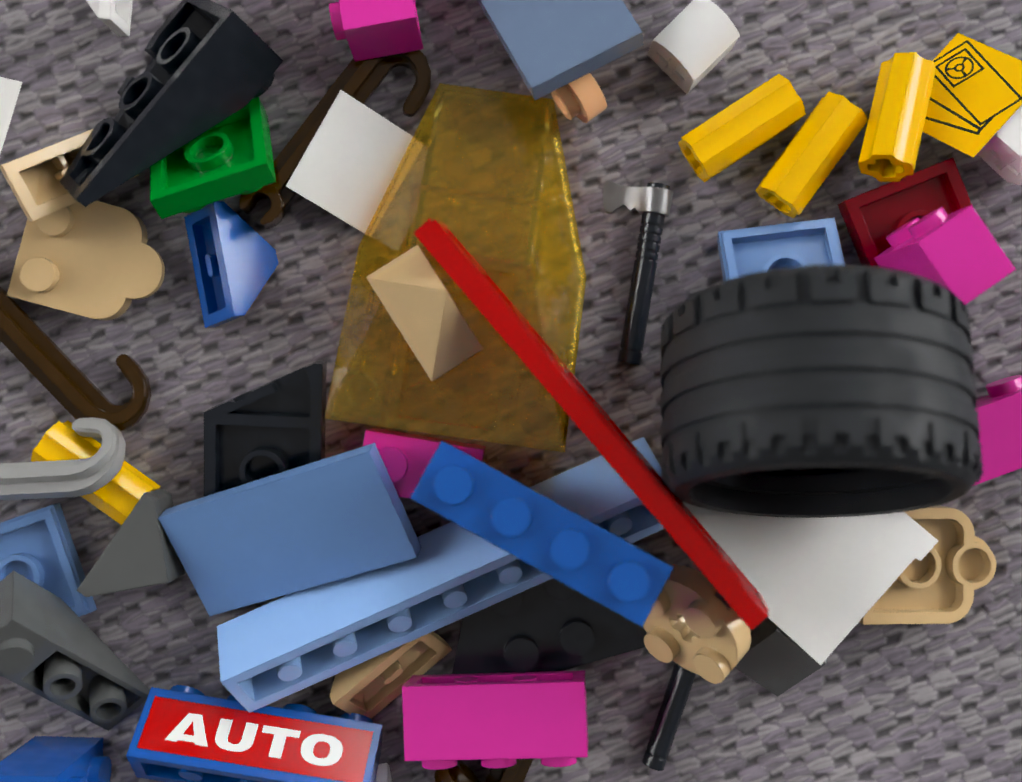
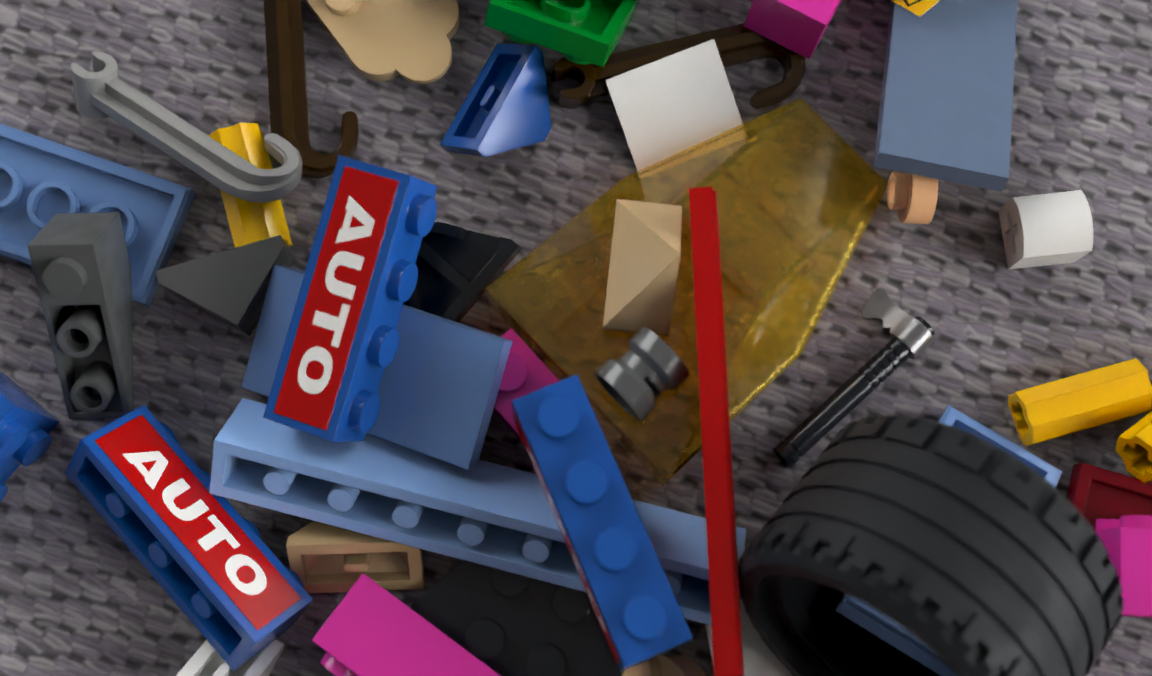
camera: 40 degrees right, 10 degrees down
(233, 507) = (351, 301): none -> brick
(487, 396) = (642, 374): none -> dark grey wheel
(742, 127) = (1036, 331): yellow axle -> none

